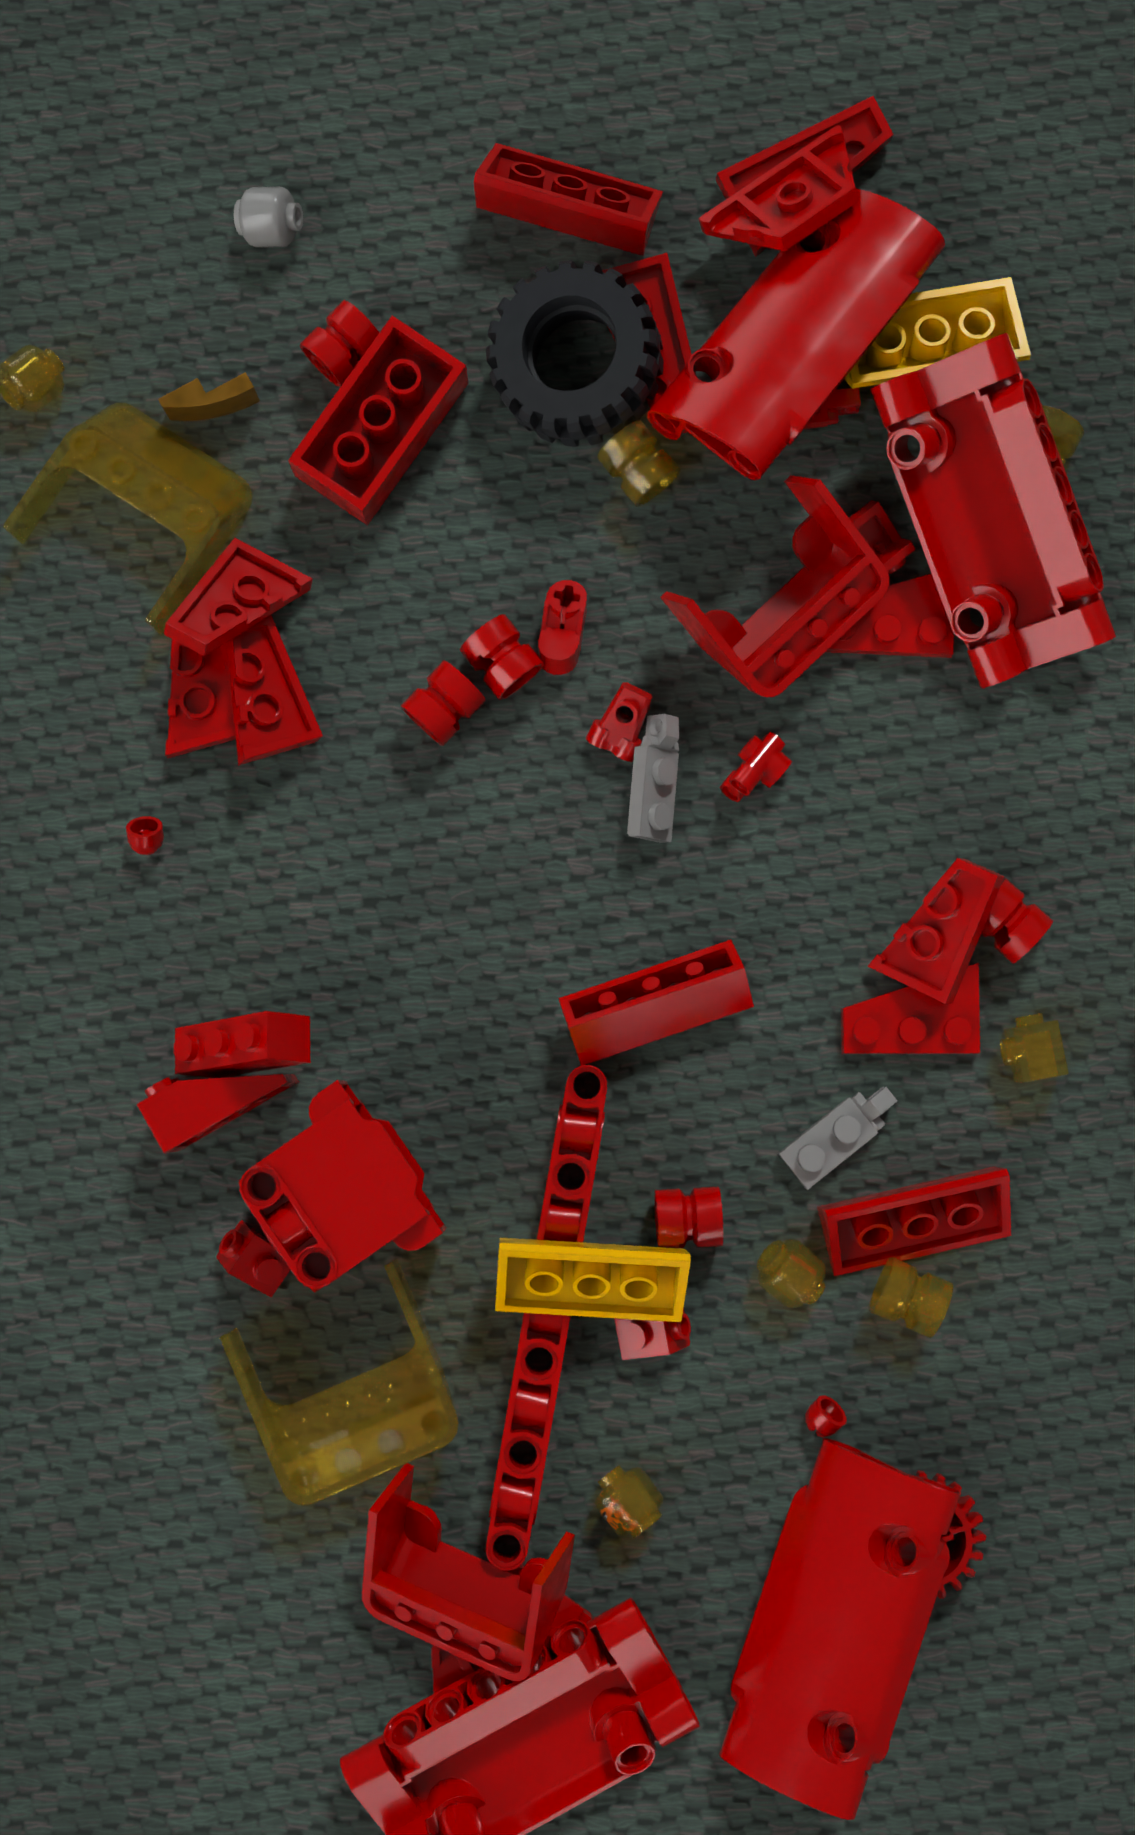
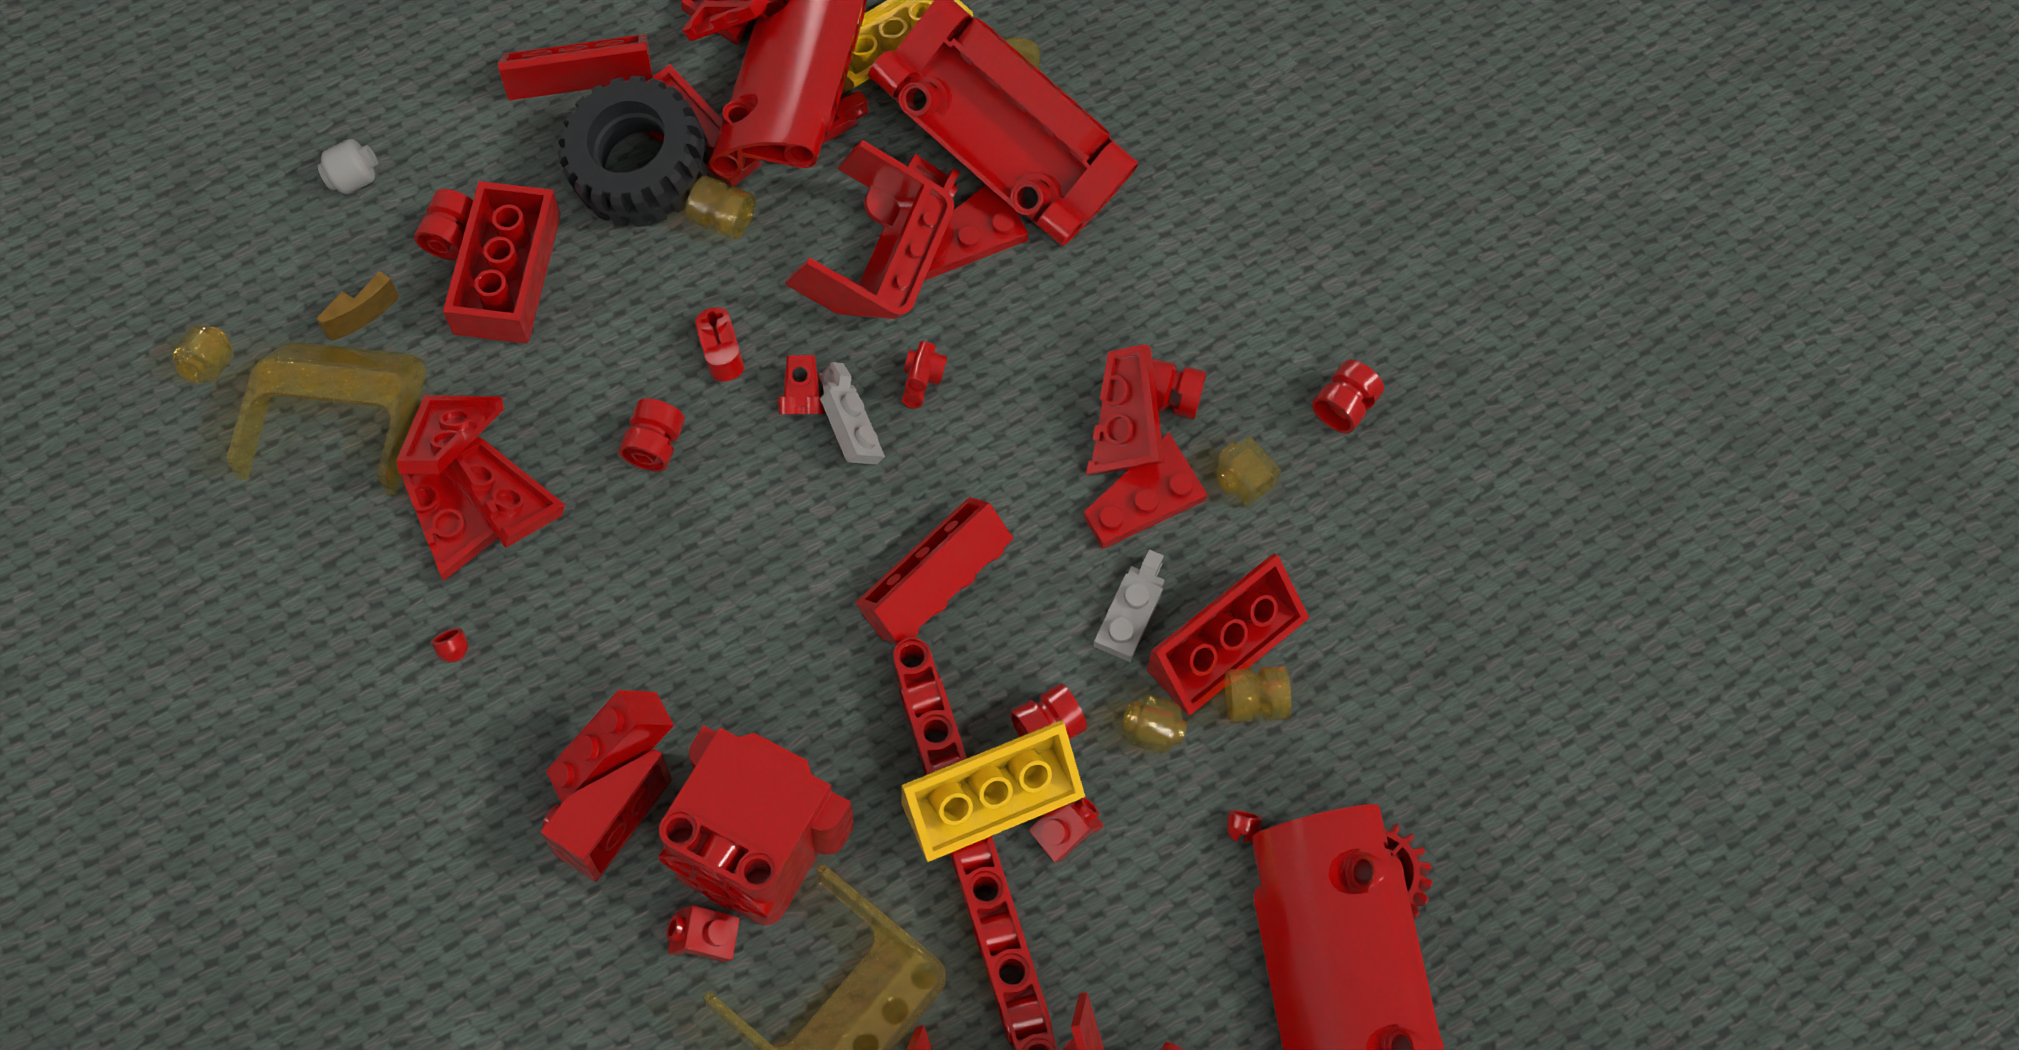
camera: 30 degrees left, 20 degrees down
(501, 656) = (685, 383): red wheel -> none
(629, 1501) = (1121, 971): clear yellow head -> none

